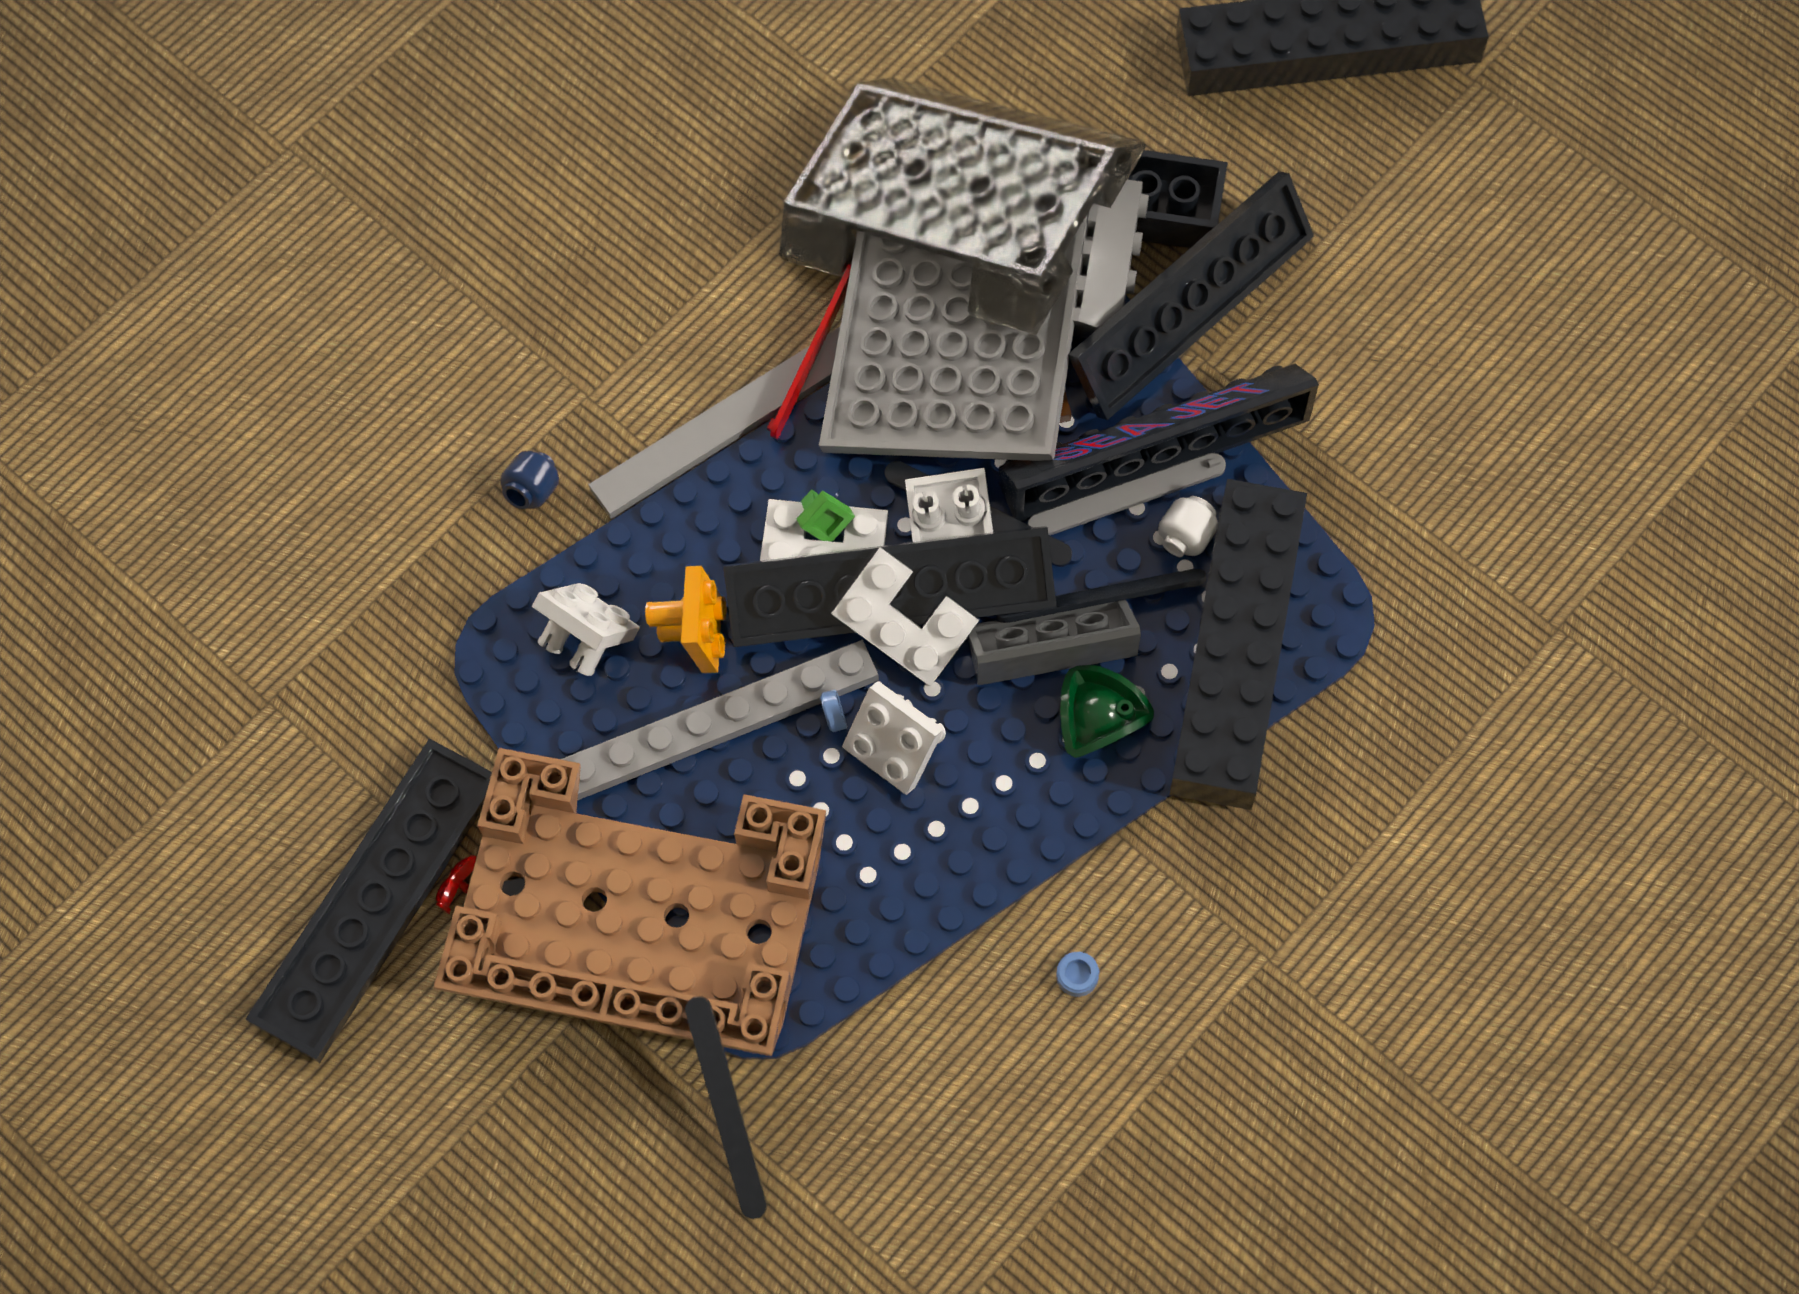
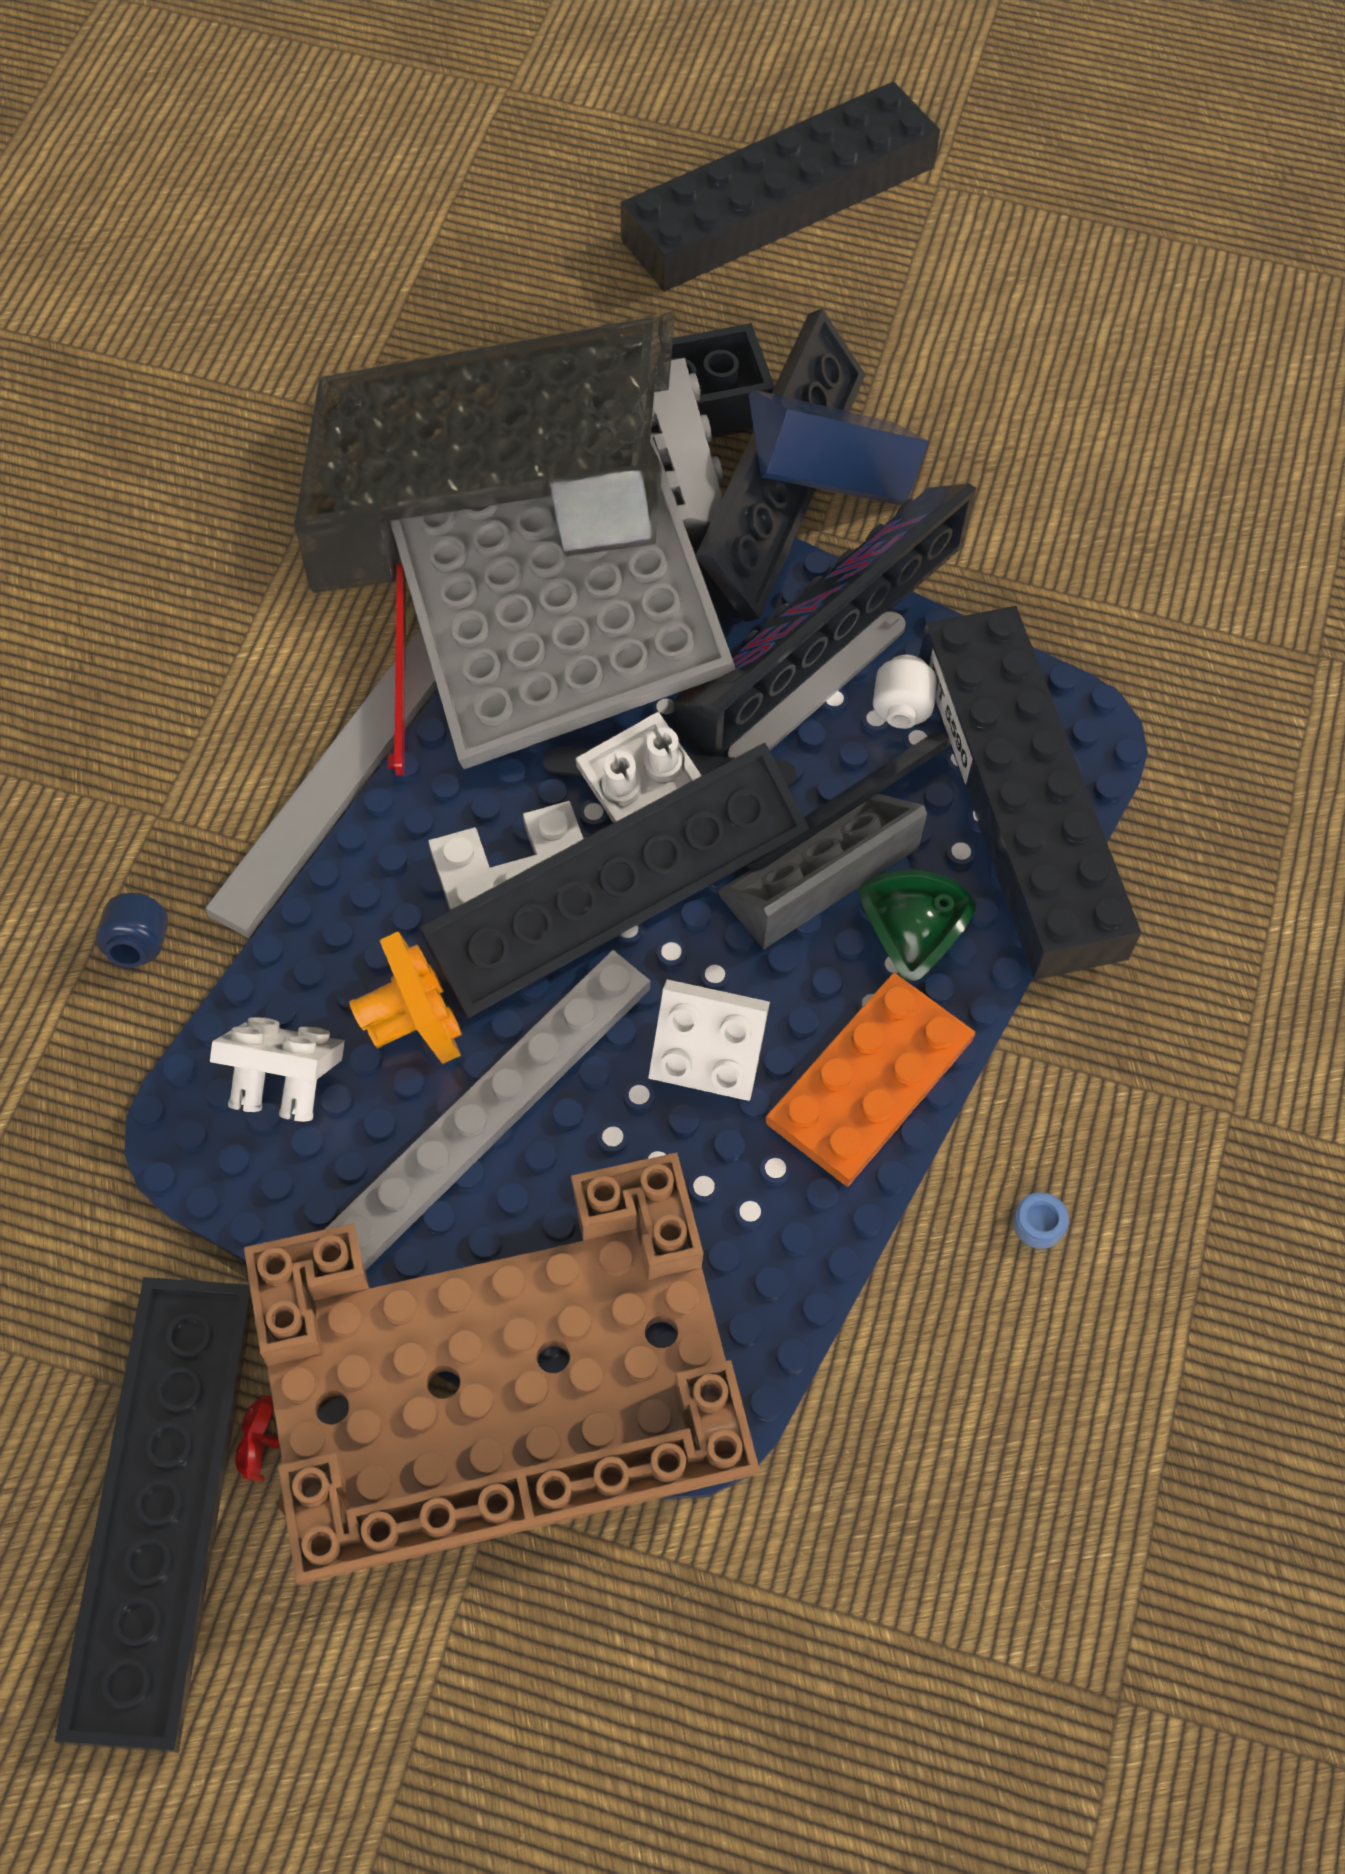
camera: 30 degrees left, 5 degrees down
(726, 1107) = (733, 1563): black piece -> none
(824, 515) = (503, 831): bright green tile -> none
(833, 710) = (620, 1040): medium blue tile -> none
(917, 649) = (682, 933): white plate -> none
(1004, 816) = (870, 1079): none -> orange plate
(1237, 299) = (834, 449): none -> dark blue slope

